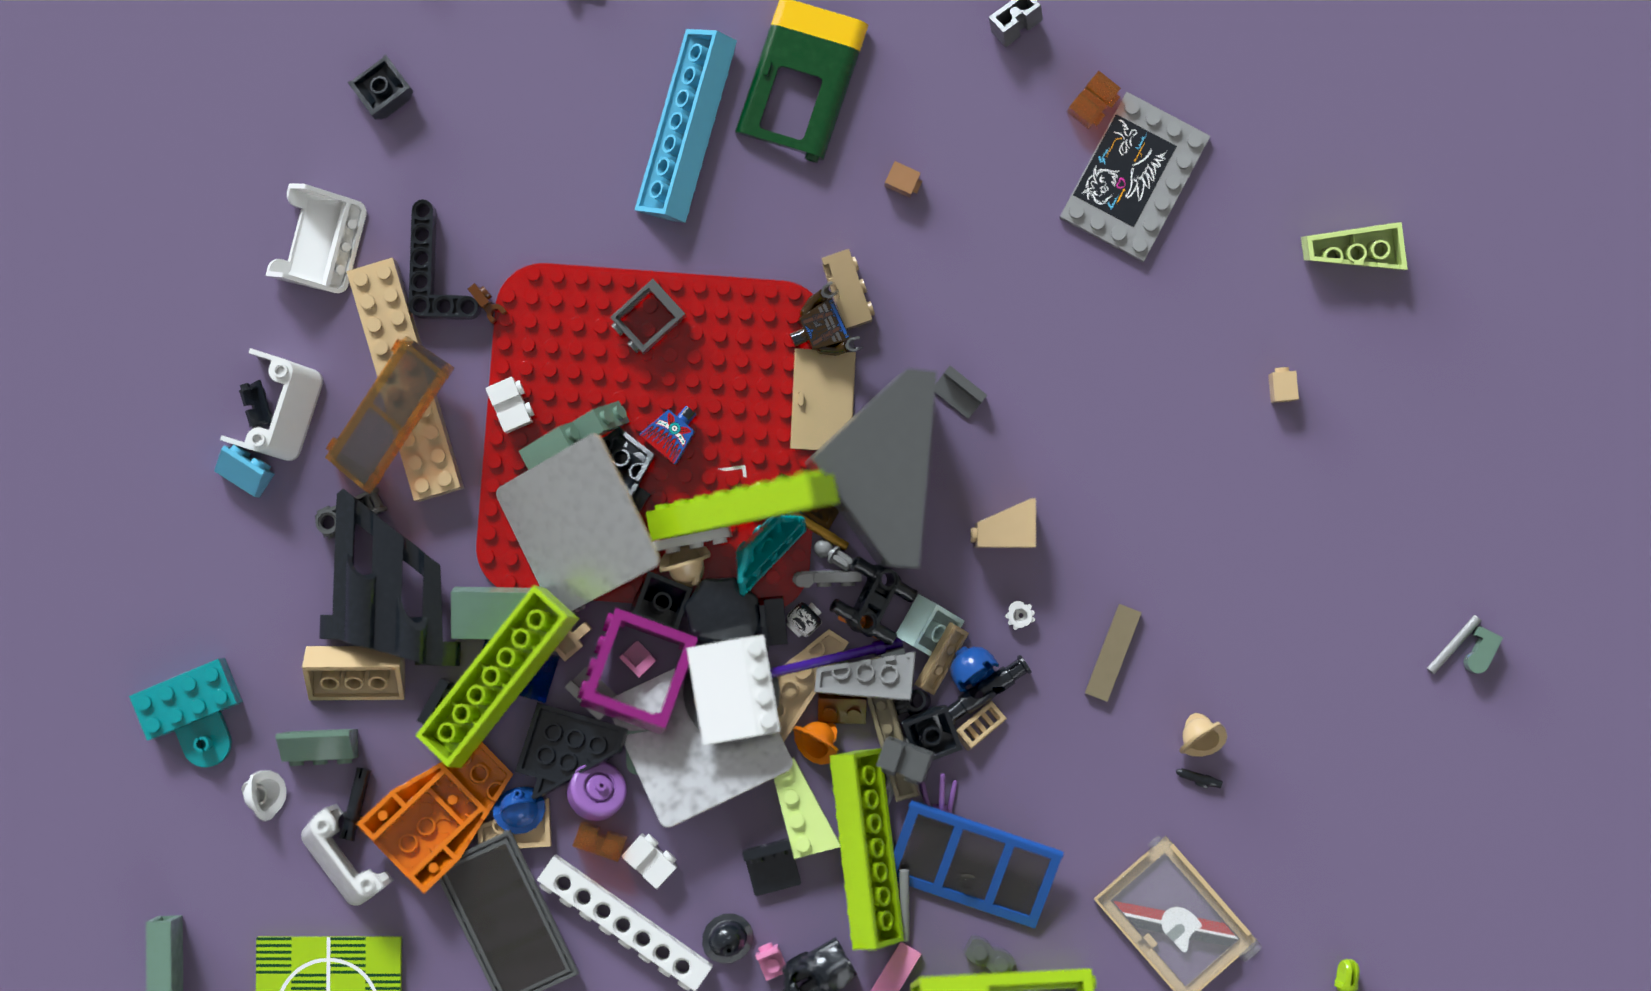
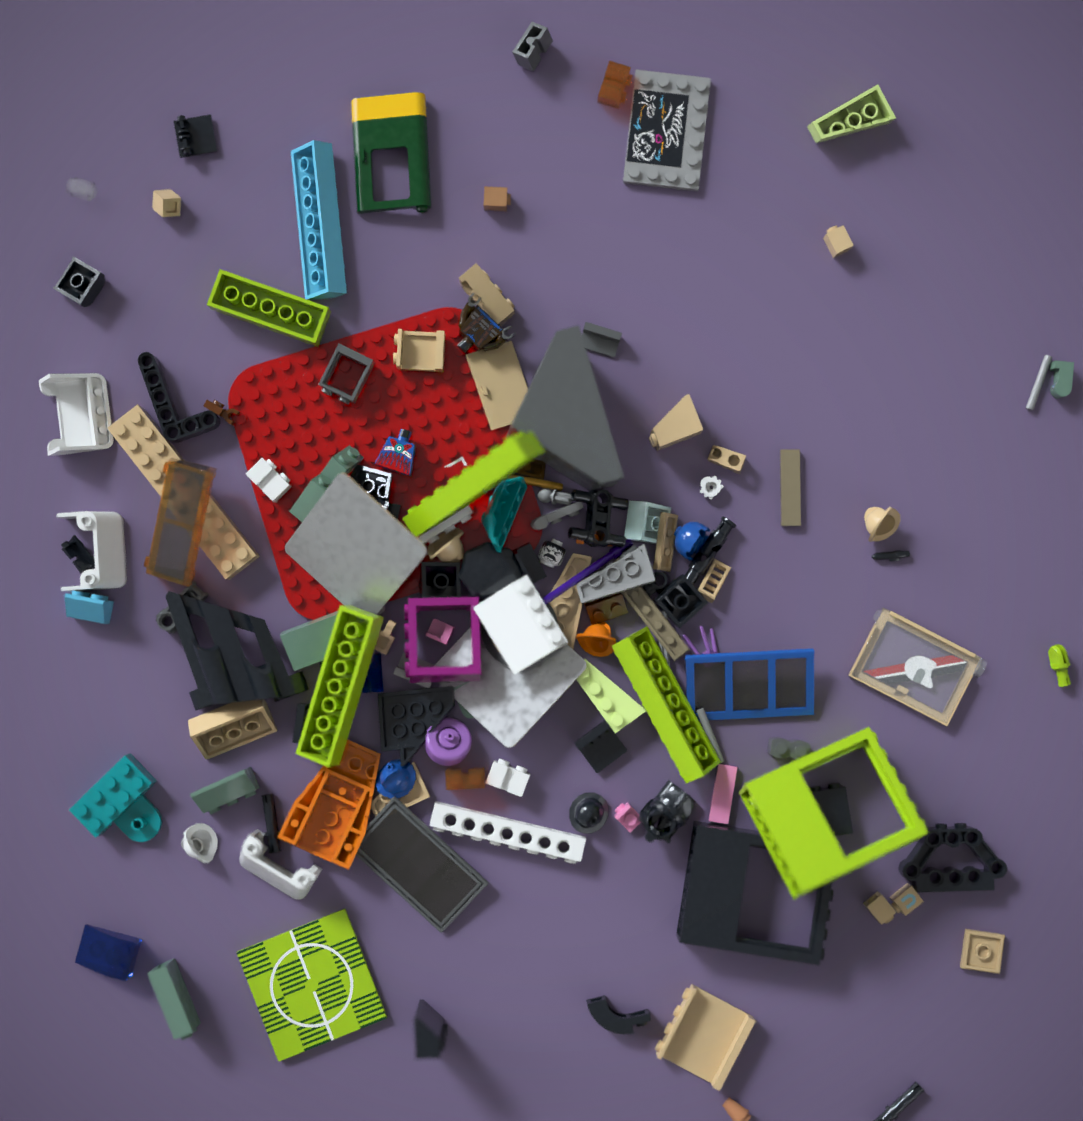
camera: 25 degrees left, 0 degrees up
(109, 878) = (108, 952): none -> clear blue slope
(518, 34) = (166, 203): none -> tan panel
(588, 204) = (269, 308): none -> lime brick
(743, 323) = (419, 350): none -> tan panel
(905, 759) = (669, 626): dark grey brick -> none
(1052, 589) = (727, 458): none -> tan leg

